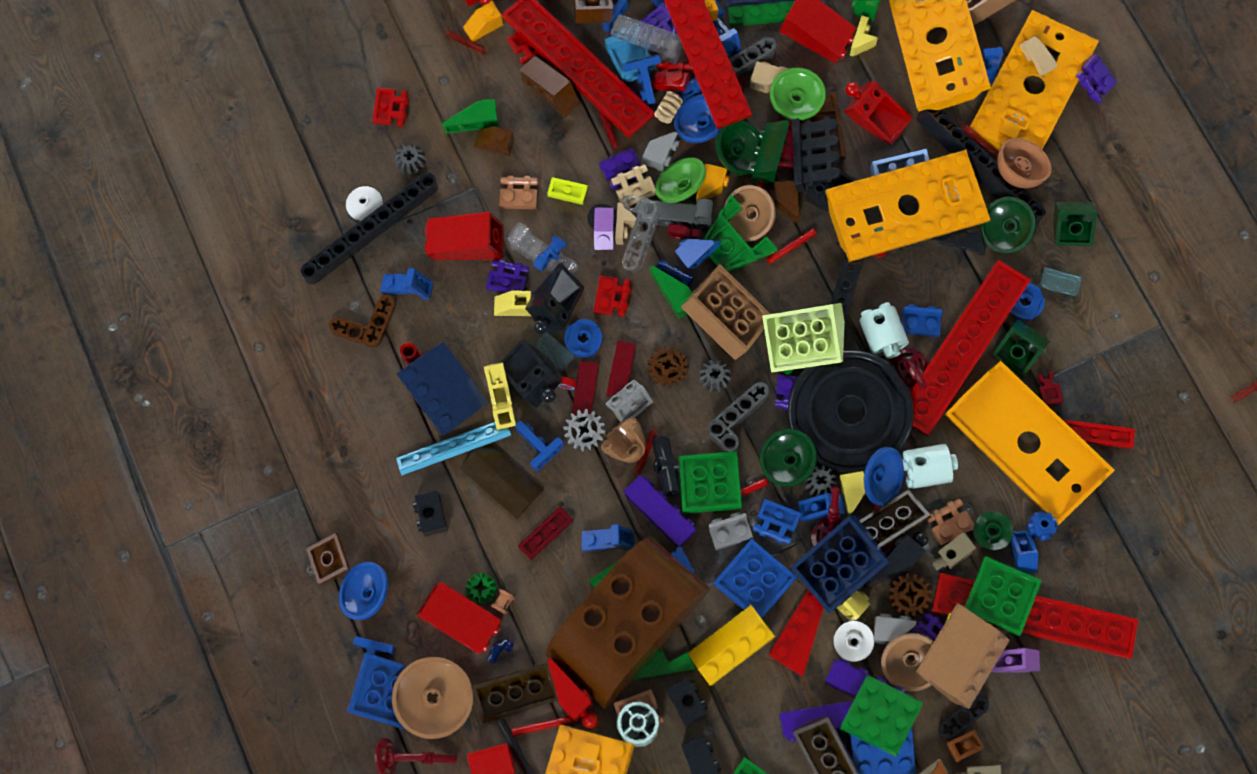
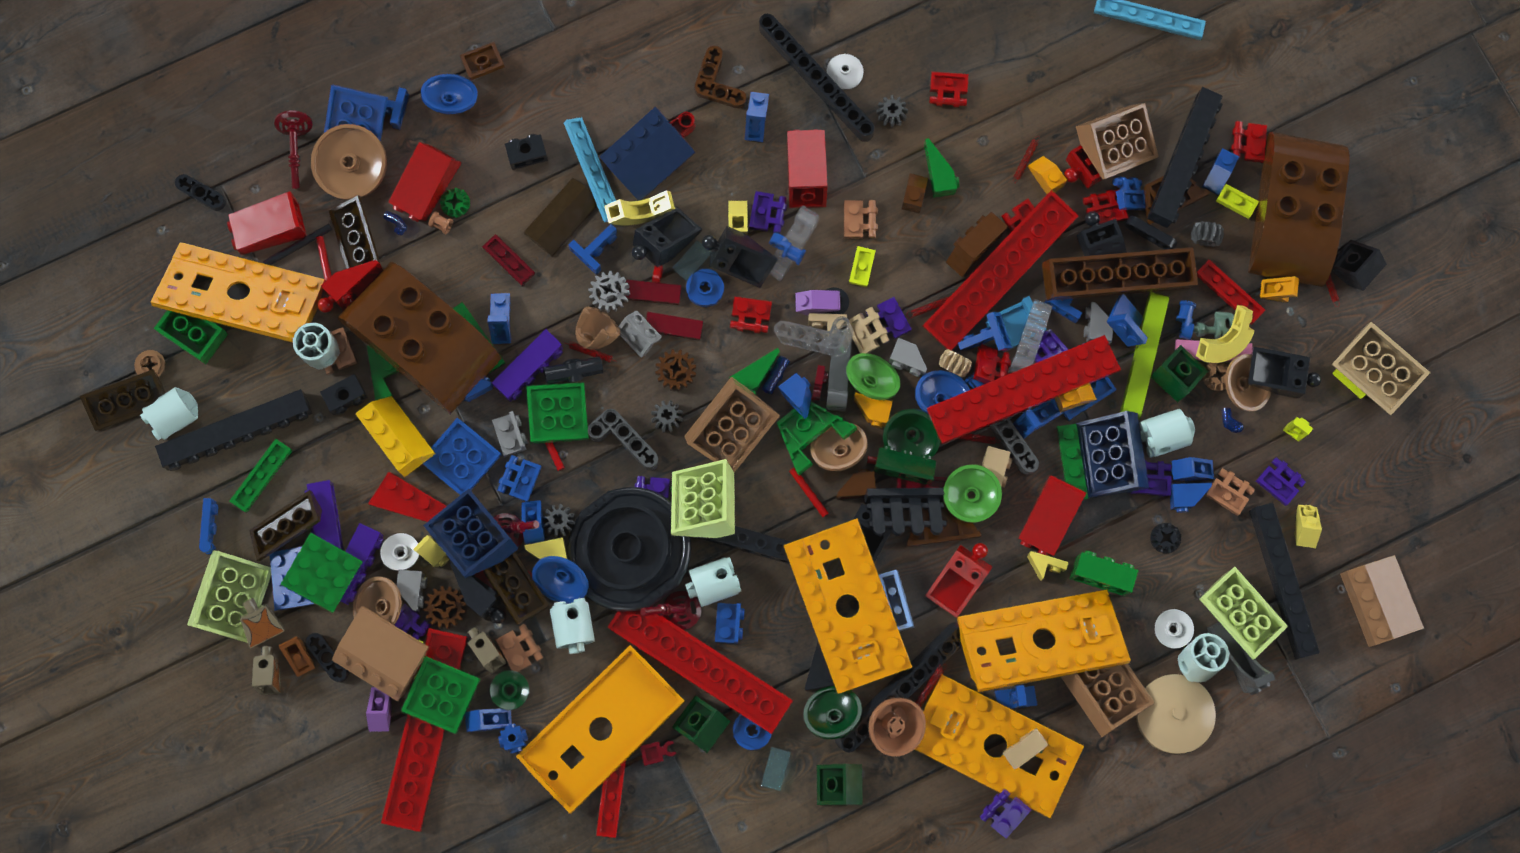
camera: 80 degrees right, 5 degrees up
(778, 452) = (579, 478): dark green dish -> none

